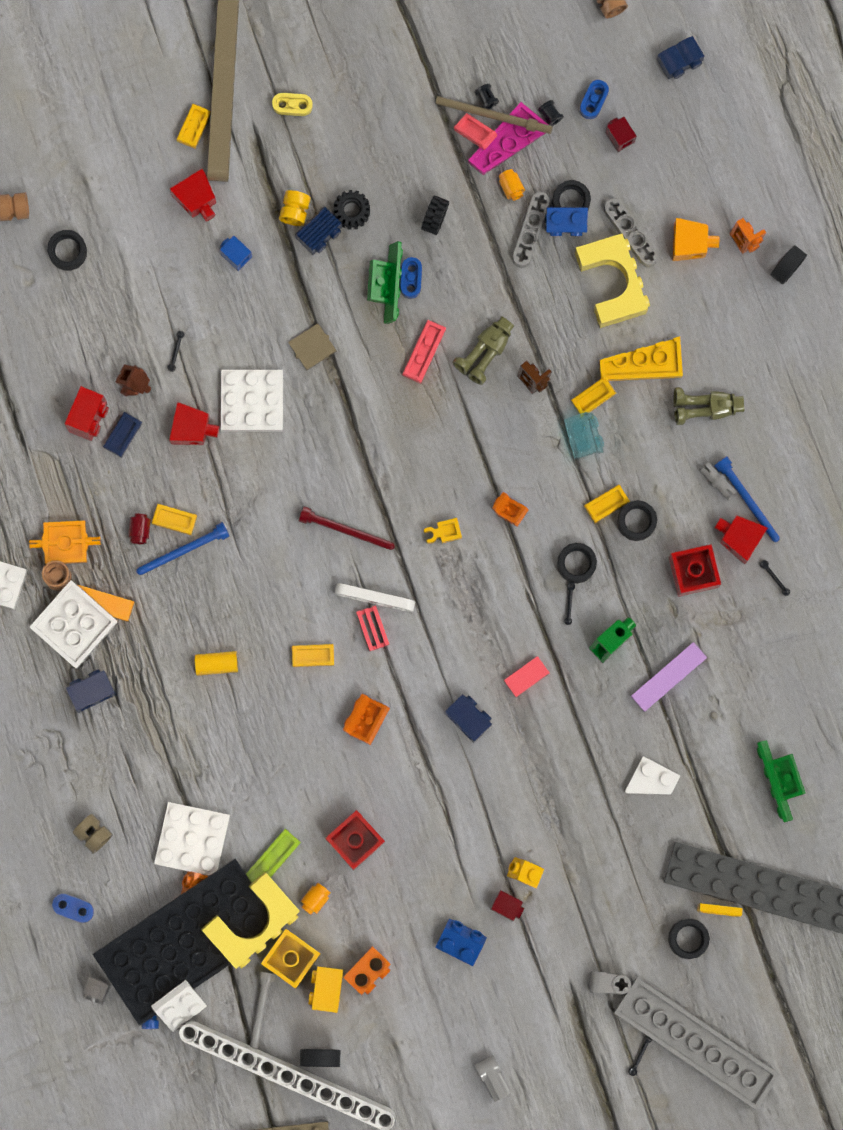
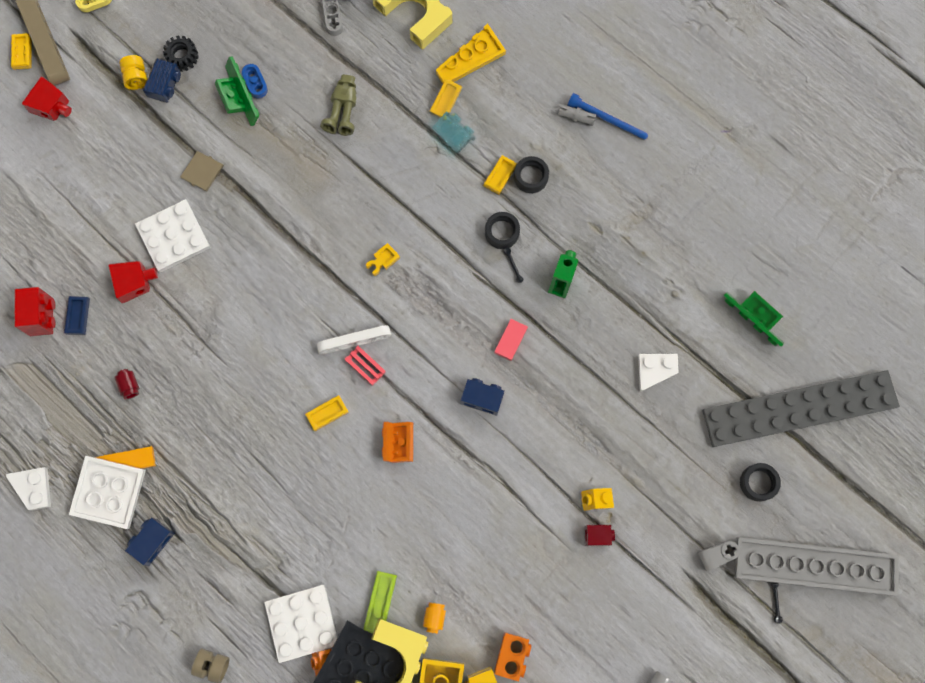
camera: 25 degrees left, 5 degrees down
(56, 575) = (70, 457): medium nougat wheel -> none
(65, 542) = (67, 427): light orange plate -> none
(133, 381) = (63, 266): copper piece -> none
(171, 367) = (92, 242): black hinge -> none
(174, 519) = (154, 361): yellow tile -> none
(216, 663) = (248, 461): yellow brick -> none
(218, 533) = (196, 353): blue piece -> none
(235, 252) = (102, 128): blue brick -> none
(309, 516) = (266, 302): dark red piece -> none
(355, 840) = (442, 548): red brick -> none
(424, 351) = (294, 131): coral tile -> none
(435, 215) = (248, 24): black tyre -> none
(461, 942) = (577, 587): blue bracket -> none
(509, 509) = (426, 216): orange bracket -> none
(530, 377) = (390, 106): reddish brown bracket -> none
(668, 677) = (623, 282): lavender tile -> none
(694, 570) = (598, 188): red brick -> none
(719, 405) = (545, 60): olive piece -> none
(719, 910) = (771, 445): yellow tile -> none
(740, 536) = (618, 146): red torso -> none
(764, 564) = (647, 159): black hinge -> none

